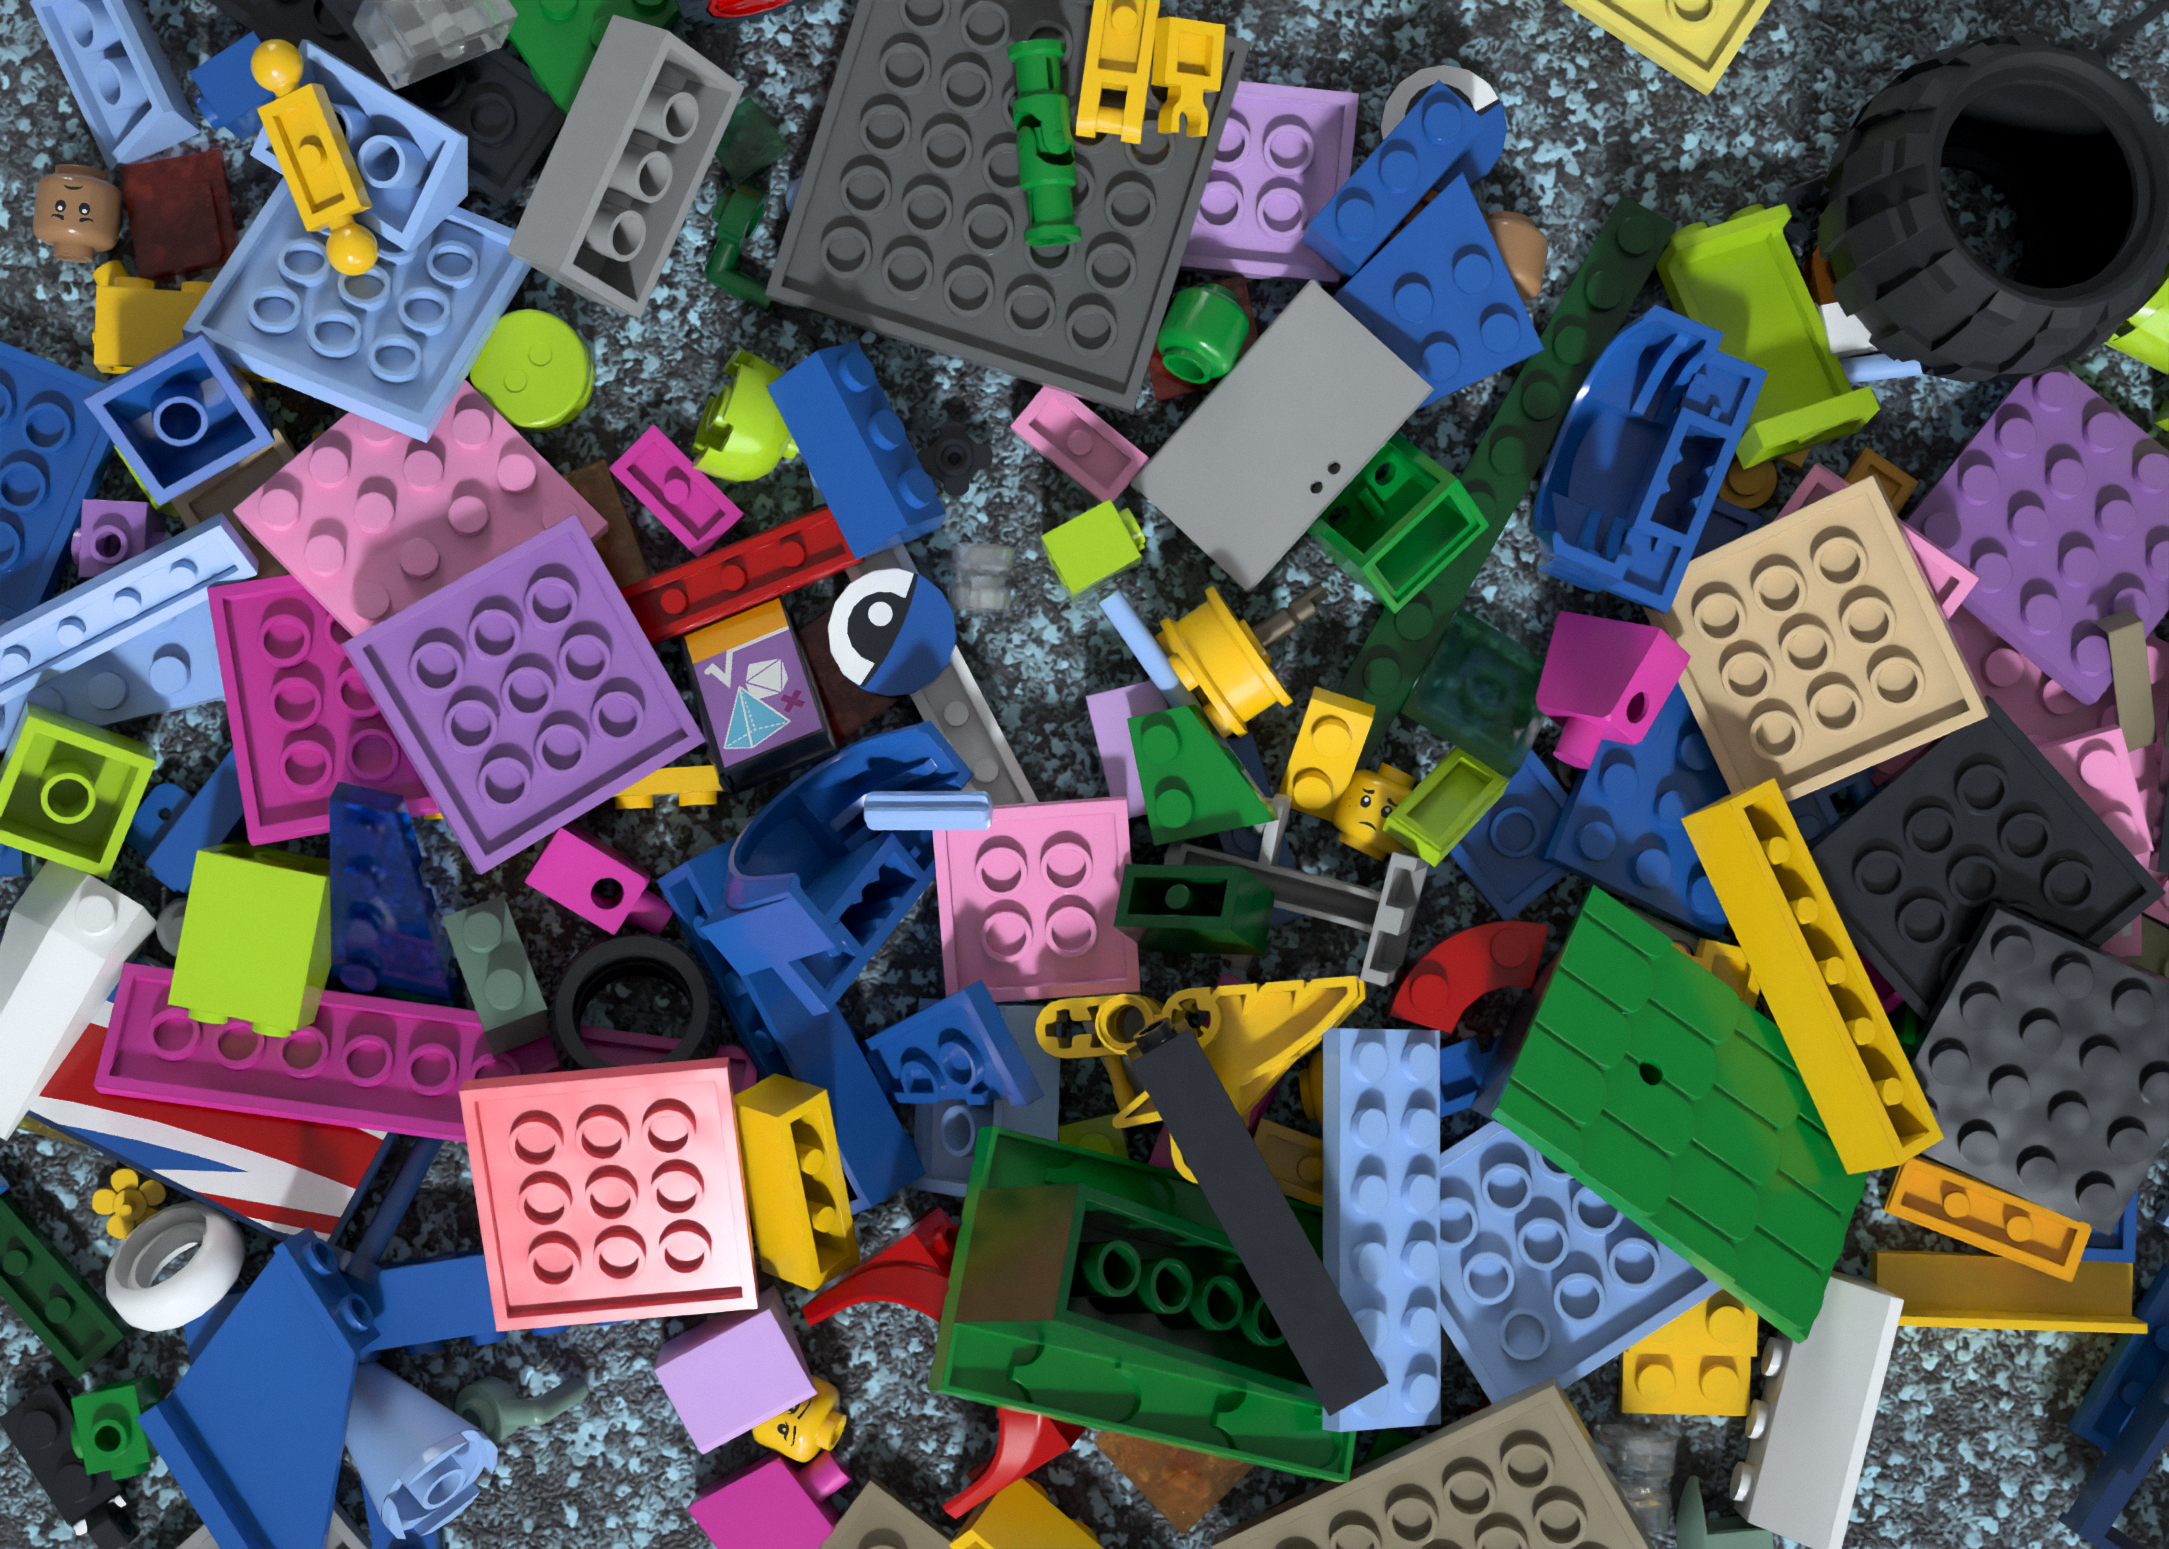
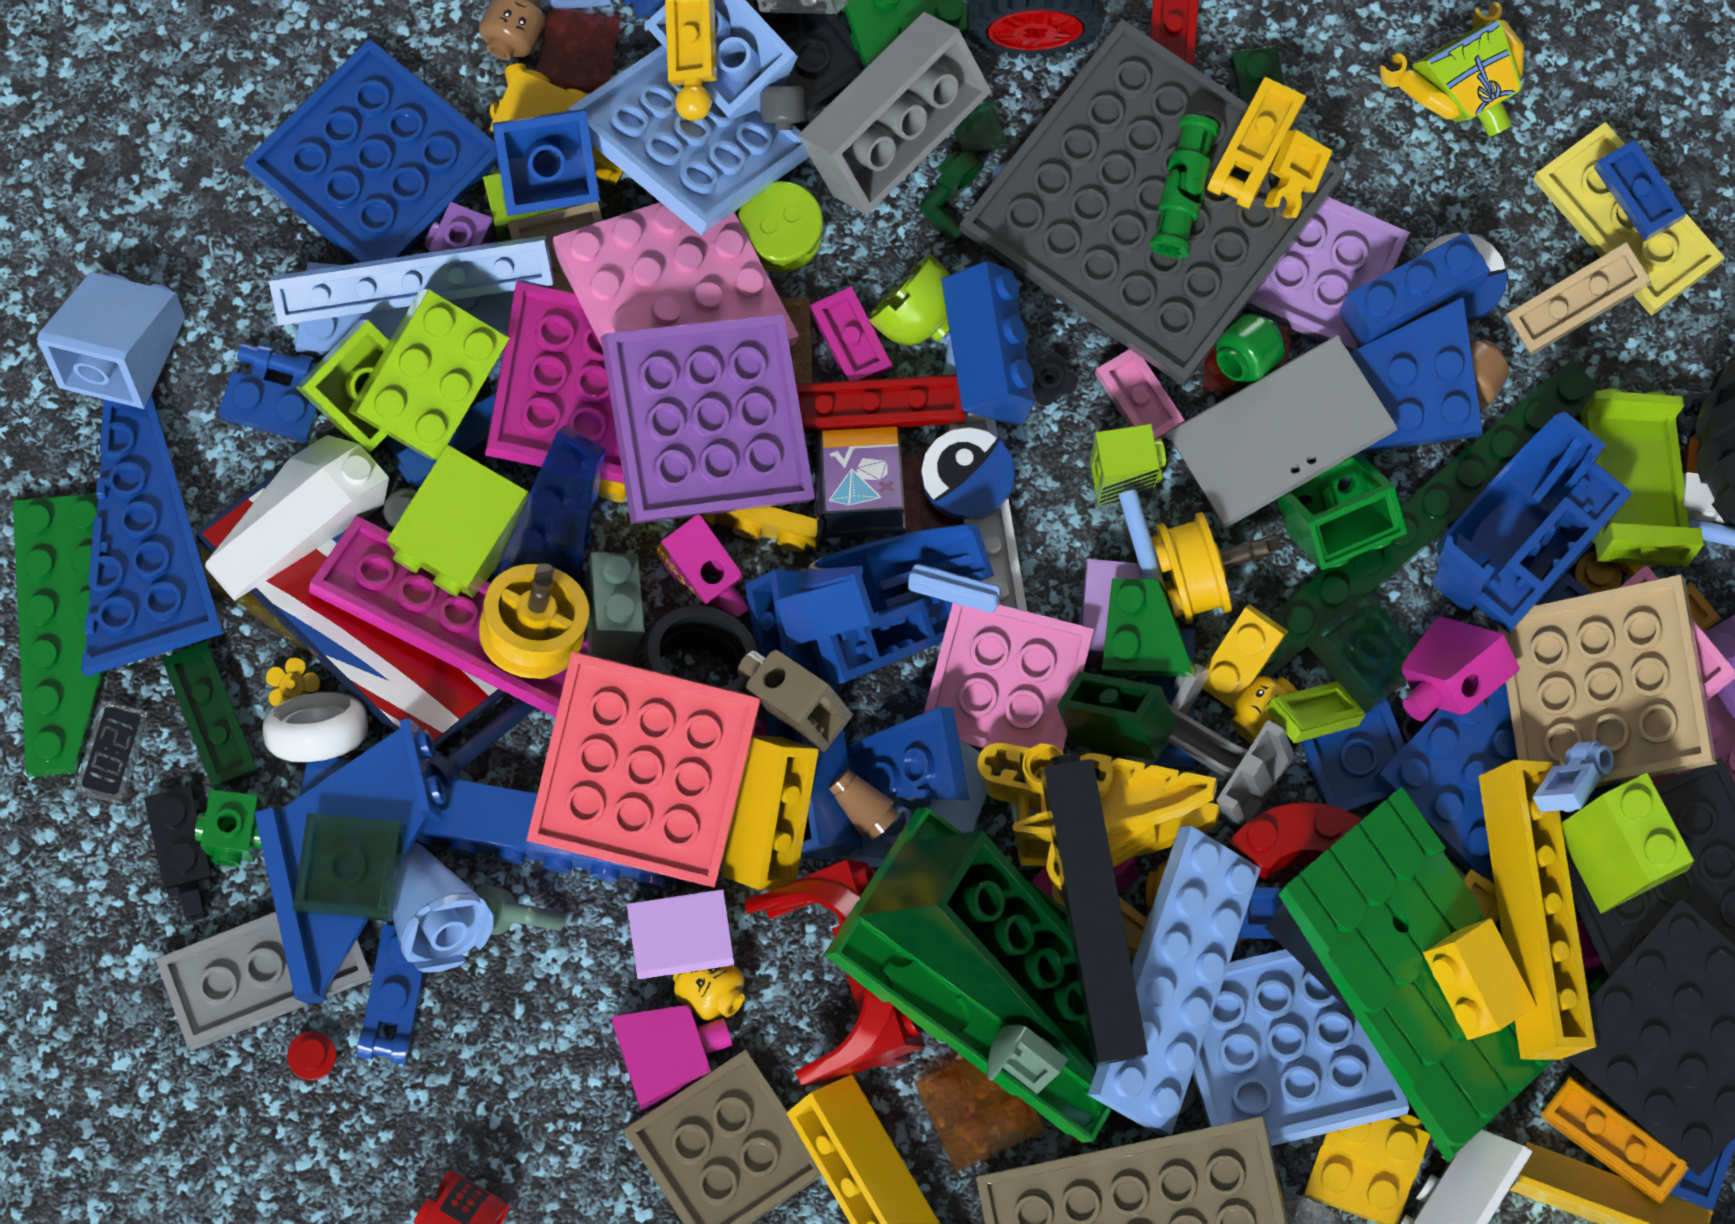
camera: 15 degrees right, 15 degrees down
(137, 762) = (429, 374): none -> lime brick
(282, 1454) = (349, 867): none -> clear green plate
(399, 1039) = (533, 620): none -> yellow wheel
(474, 207) = (783, 106): none -> dark grey piece
(770, 1040) = (795, 697): none -> dark tan torso
(909, 1127) = (864, 805): none -> medium nougat cone
(980, 592) = (1041, 461): clear wheel -> none
(1231, 1420) = (1025, 1057): none -> sand green plate
(1609, 110) = (1578, 299): none -> tan plate
(1771, 1105) = (1479, 979): none -> yellow brick
(1814, 809) = (1571, 784): none -> light blue plate
(1910, 867) = (1625, 843): none -> lime slope

